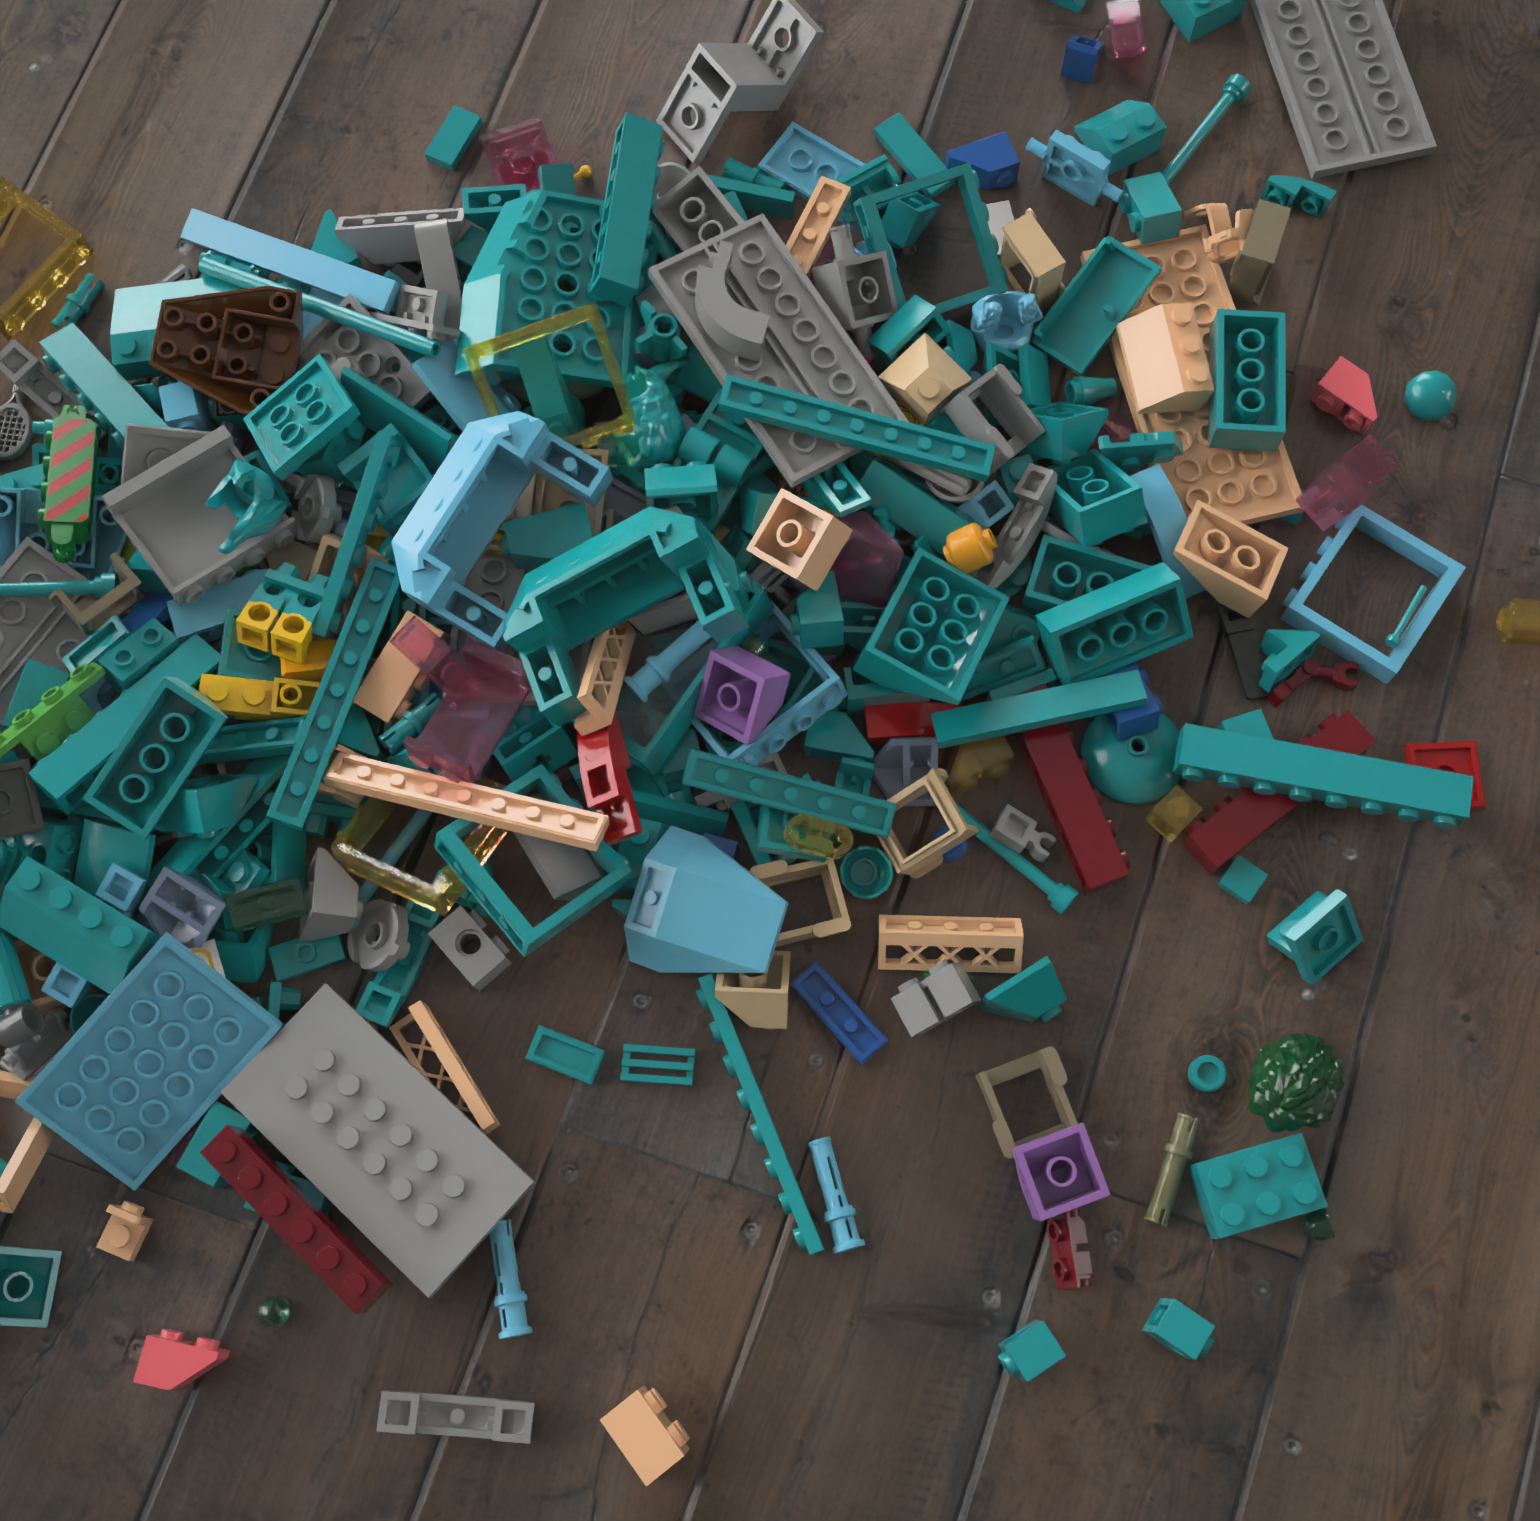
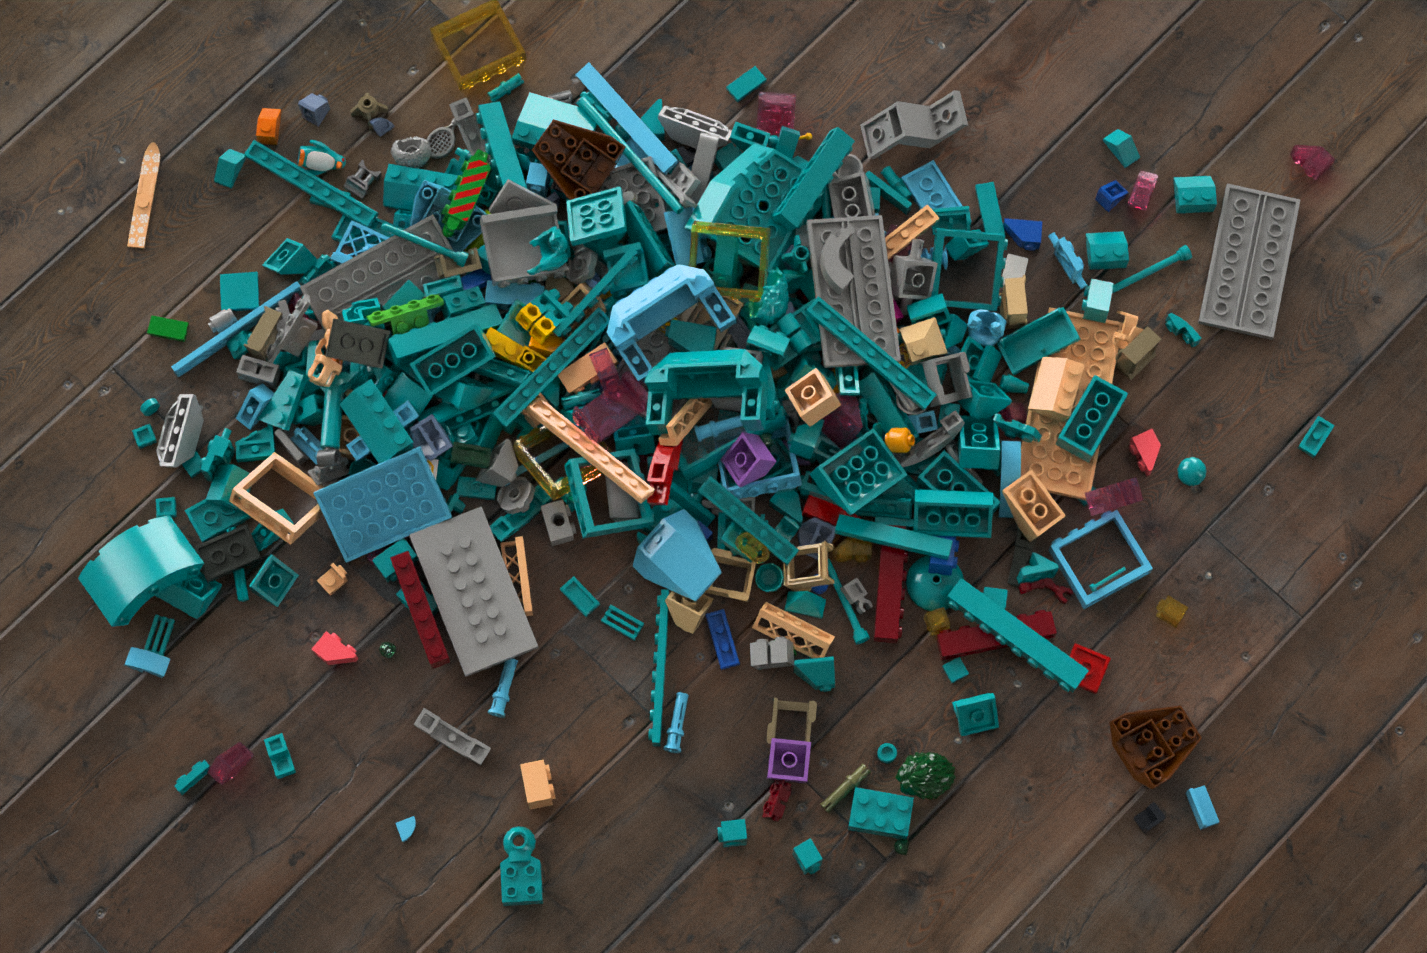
camera: 20 degrees right, 0 degrees up
(944, 887) = (805, 603): none -> teal slope

